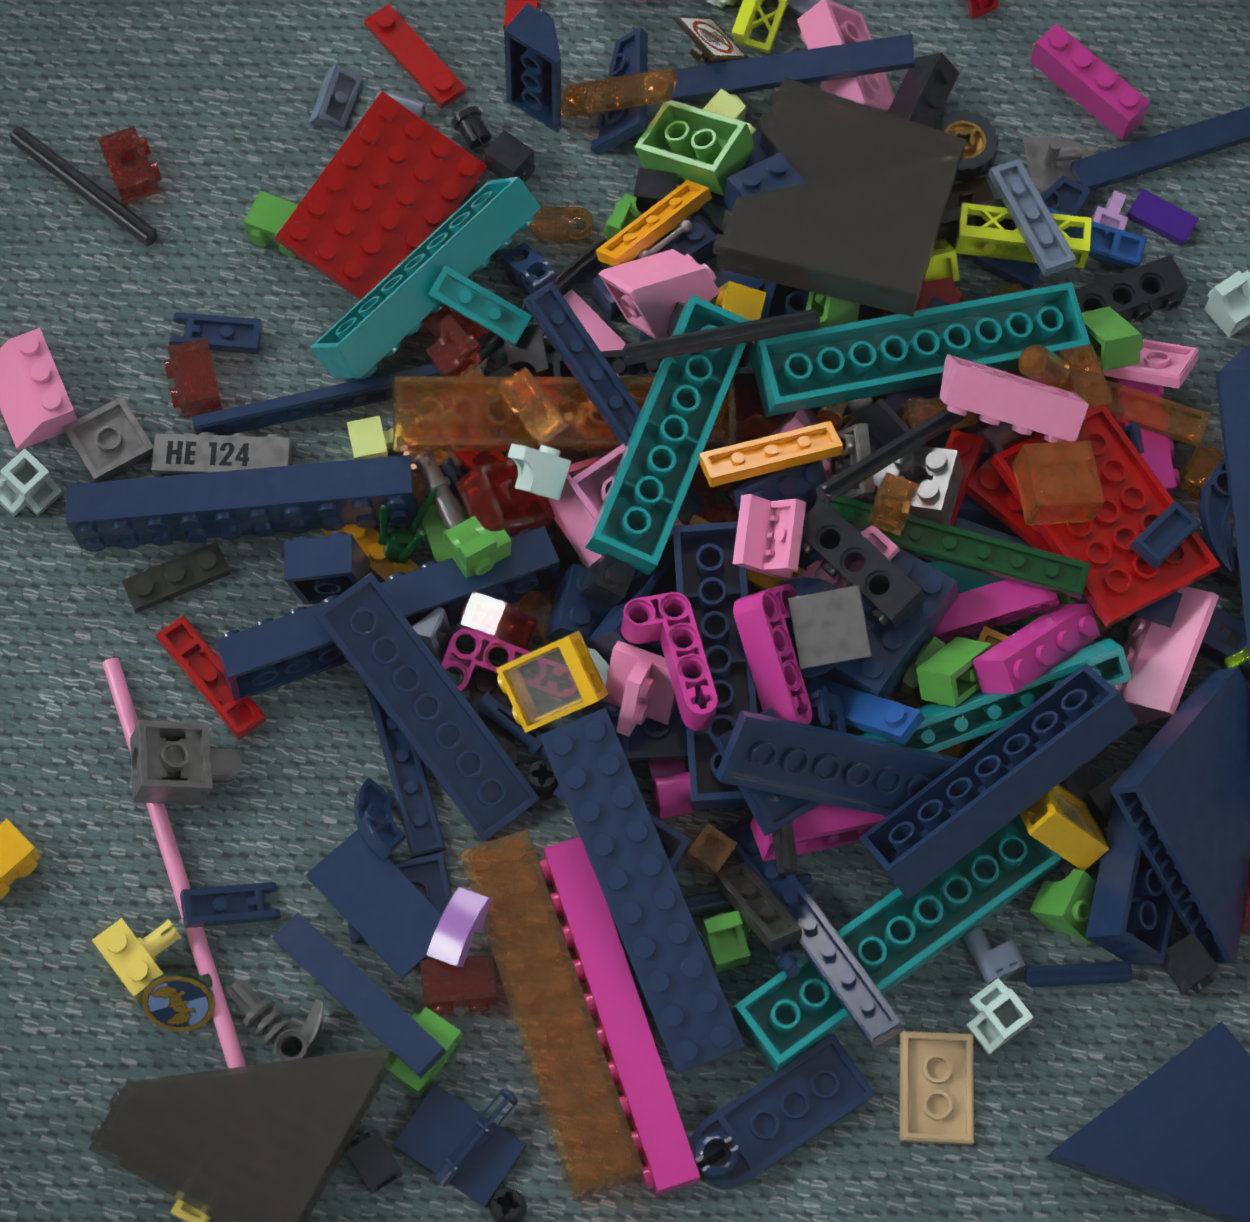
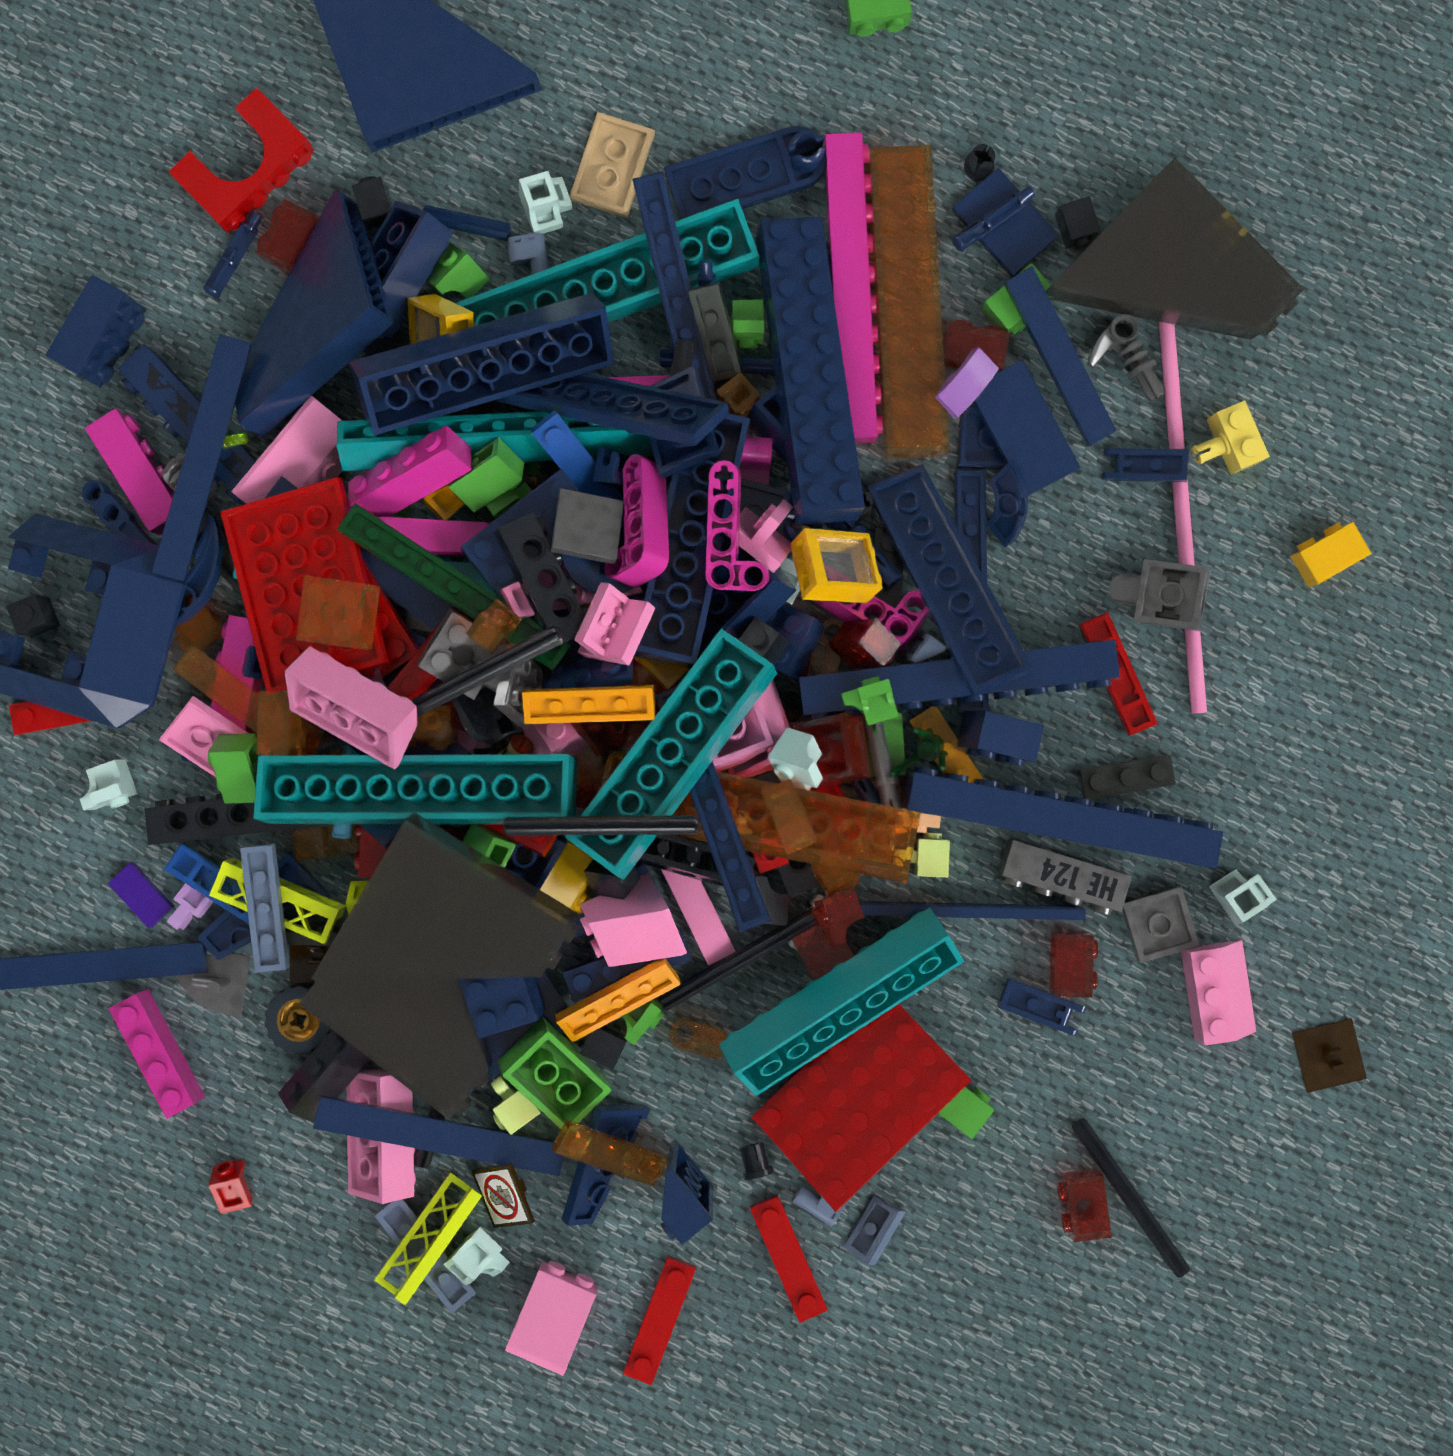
camera: 160 degrees left, 20 degrees up
(179, 1000) = (1204, 392): shield -> none
(479, 305) = (804, 951): teal plate -> none
(509, 158) = (728, 1116): black brick -> none
(530, 273) = (744, 988): dark blue leg -> none
(685, 226) = (589, 988): light grey hinge -> none
(1043, 366) = (309, 739): clear orange brick -> none
(1165, 535) = (259, 547): dark blue tile -> none

